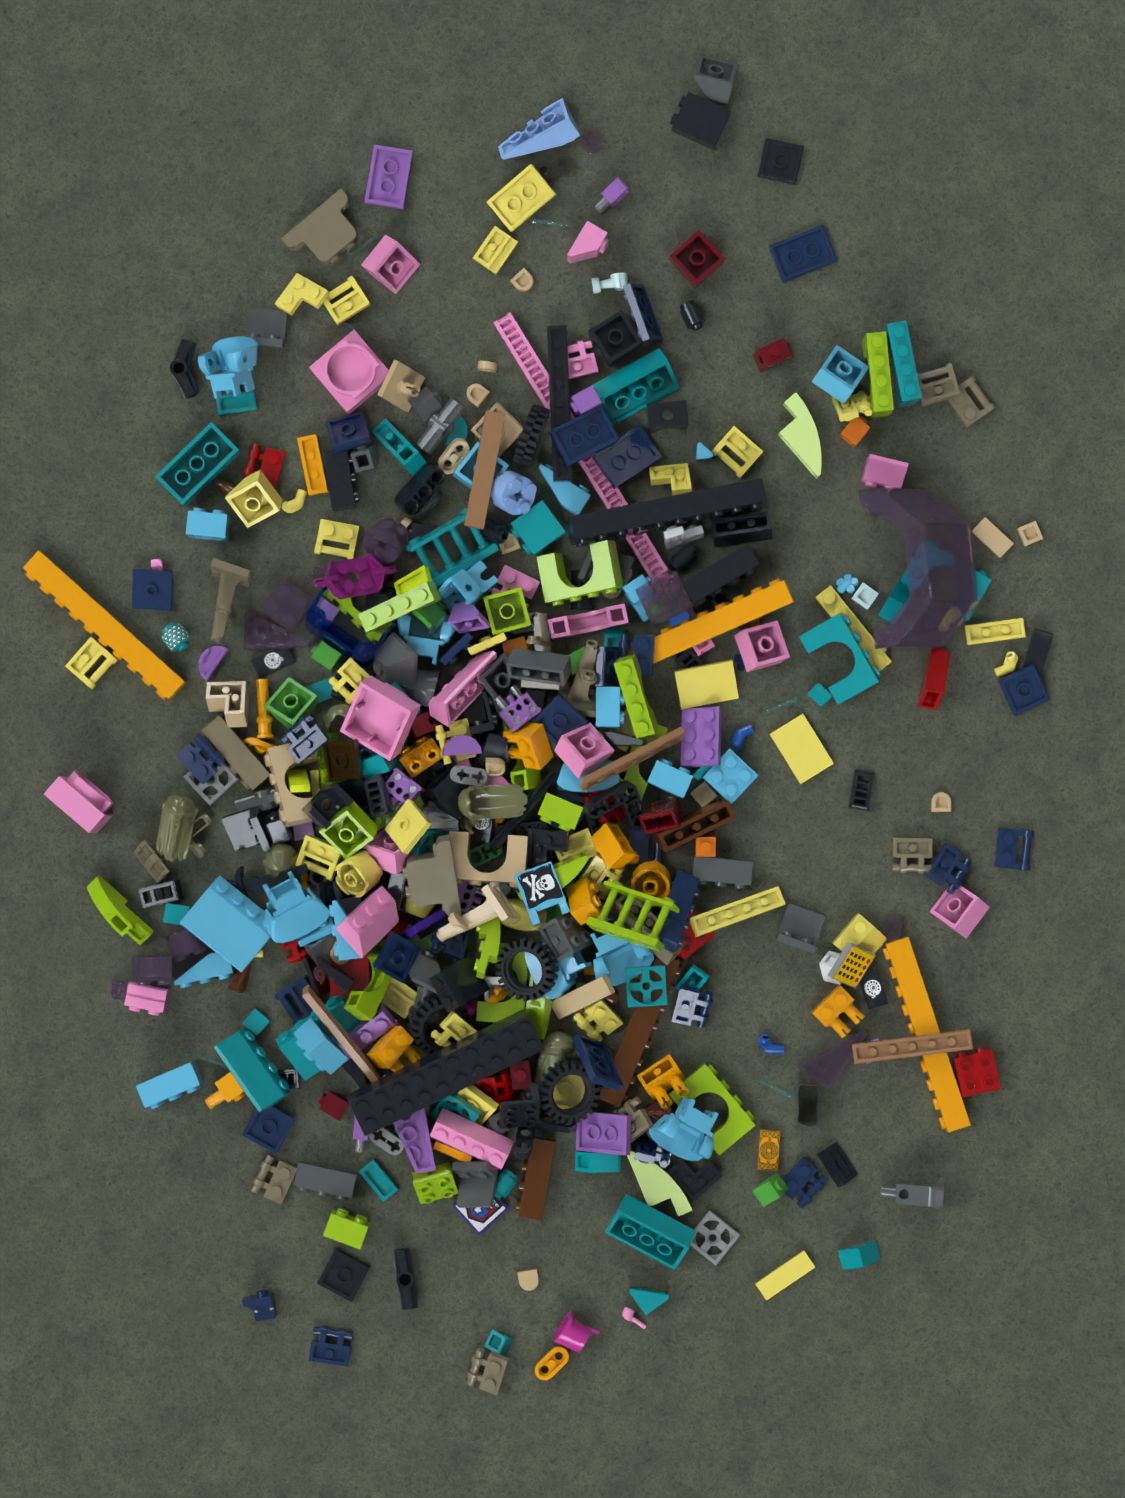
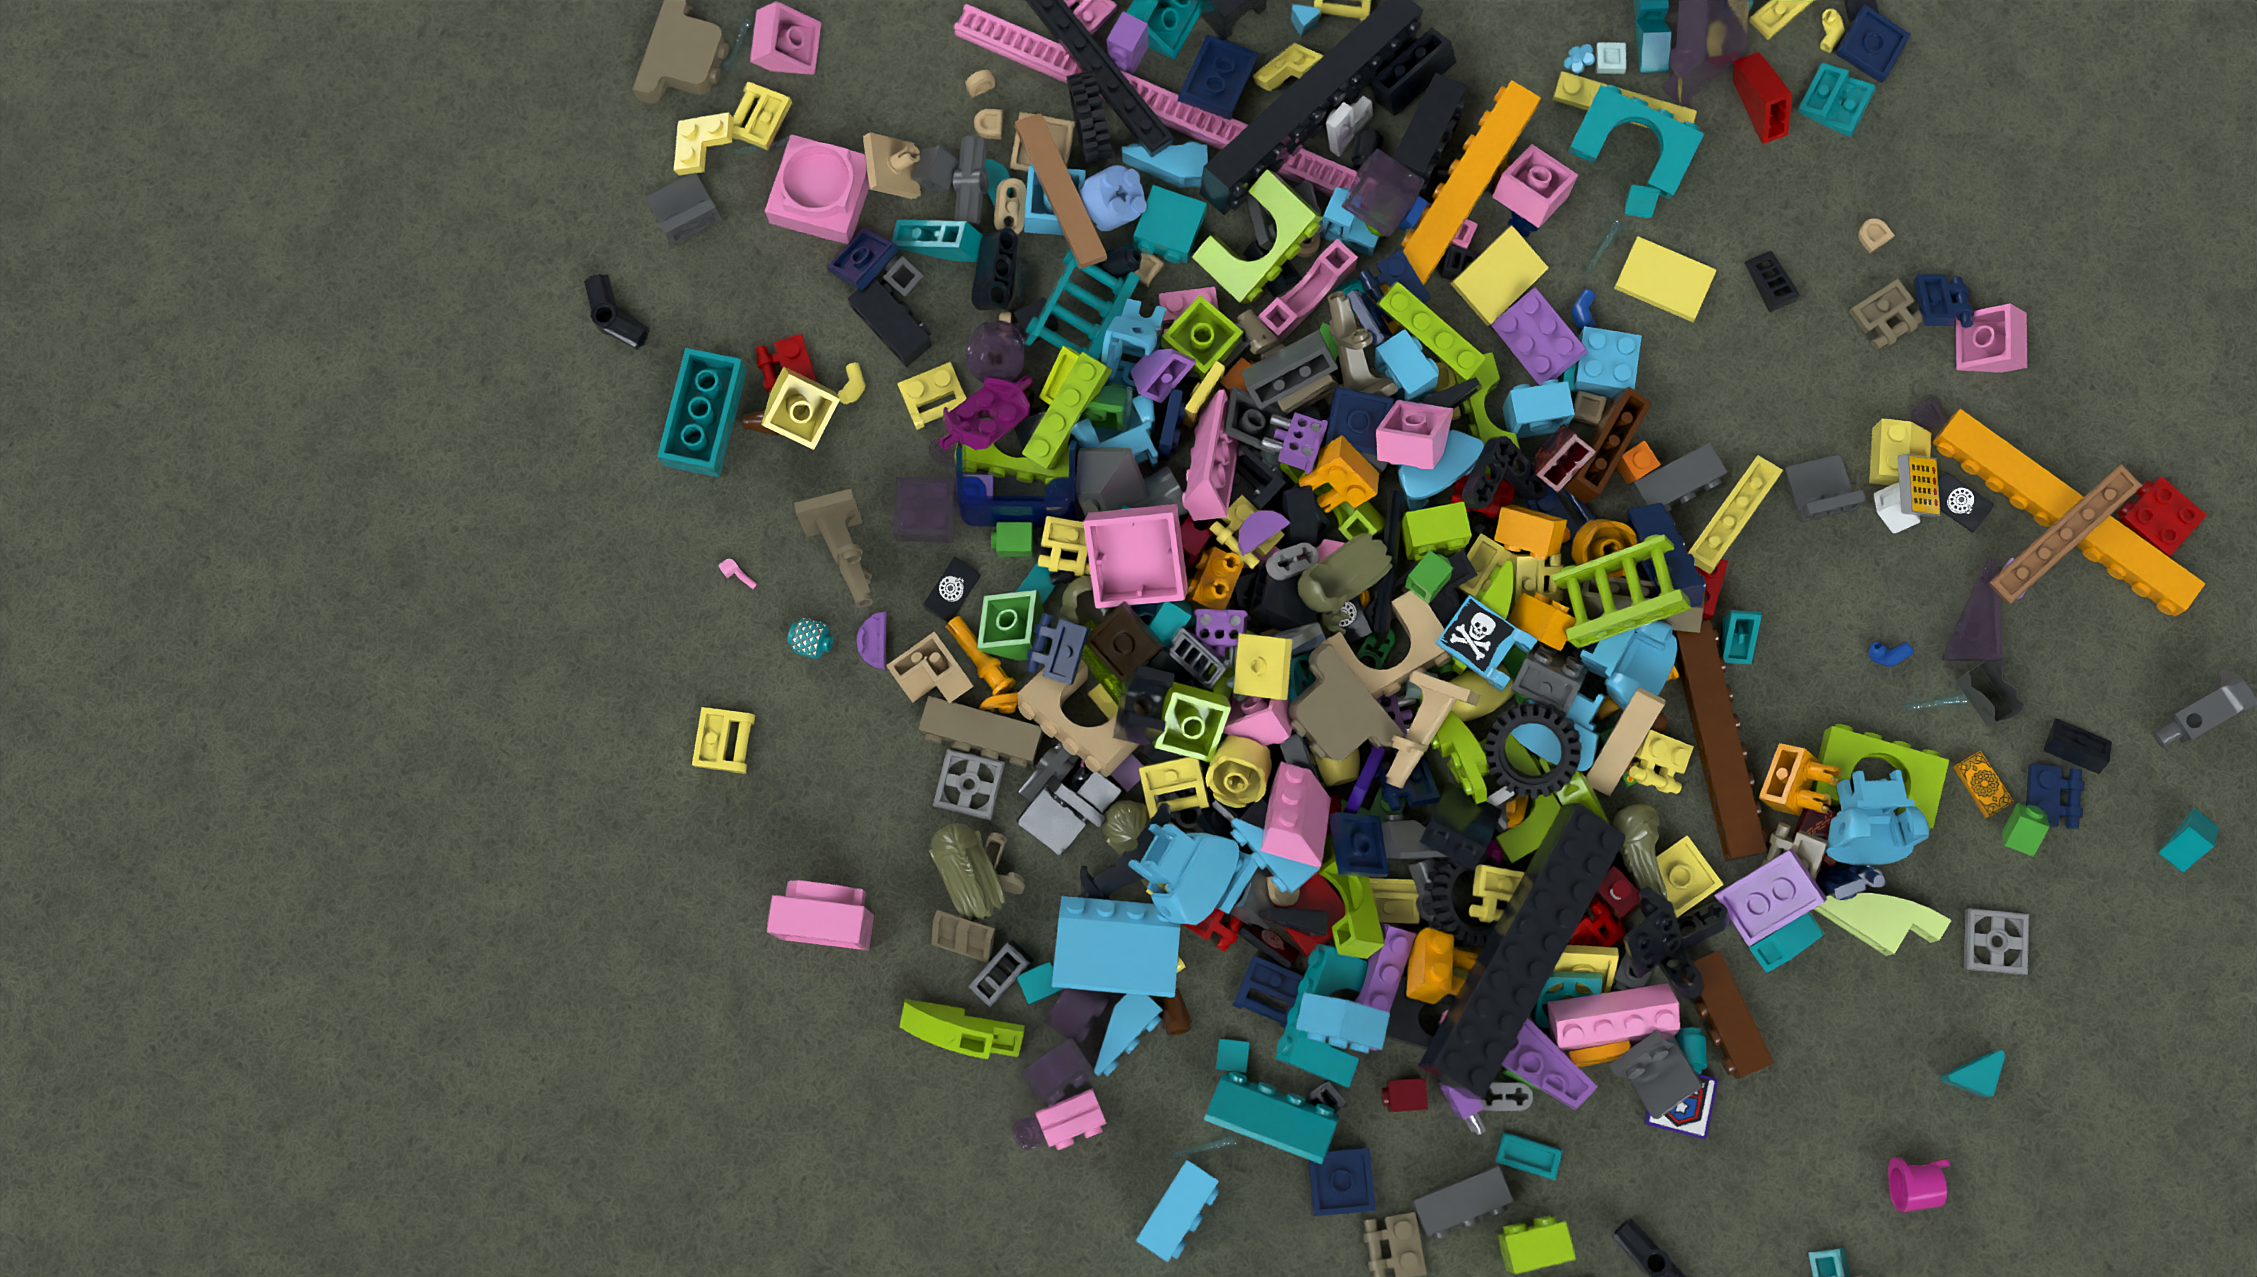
camera: 30 degrees left, 10 degrees down
(102, 623) = (710, 682): light orange brick -> none
(152, 589) = (742, 600): dark blue plate -> none
(197, 763) = (937, 773): dark blue plate -> none
(208, 525) = (762, 474): medium azure brick -> none
(228, 1090) = (1260, 1164): light orange brick -> none
(229, 404) = (702, 315): teal tile -> none
(235, 359) = (666, 268): medium azure piece -> none
(264, 635) = (922, 563): clear purple wing -> none
(298, 780) = (1084, 710): neon yellow tile -> none
(312, 465) = (845, 327): light orange plate -> none
(340, 1034) = (1356, 988): medium nougat tile -> none
(435, 1184) = (1605, 1110): lime bracket -> none
(494, 766) = (1316, 531): tan tile -> none
(528, 1279) = (1808, 1154): tan tile -> none
(536, 836) = (1429, 576): none -> bright green brick
(549, 1083) = (1720, 860): black tyre -> none
(552, 1363) = (1920, 1245): light orange plate -> none
(584, 435) = (1152, 78): dark blue plate -> none
(597, 1062) = (1703, 809): dark blue plate -> none
(628, 1315) = (1965, 1113): bright pink hand -> none
(630, 971) = (1660, 673): teal piece -> none
(632, 759) = (1479, 408): medium nougat tile -> none
(650, 1231) = (1921, 983): teal brick -> none
(685, 1006) = (1754, 669): plate -> none
(694, 1183) = (1928, 882): black plate -> none
(785, 1275) = (2119, 928): light yellow tile -> none
(832, 1005) = (1930, 555): light orange brick -> none
(979, 708) = (1836, 99): none -> teal slope
(1007, 849) = (1991, 235): dark blue plate -> none

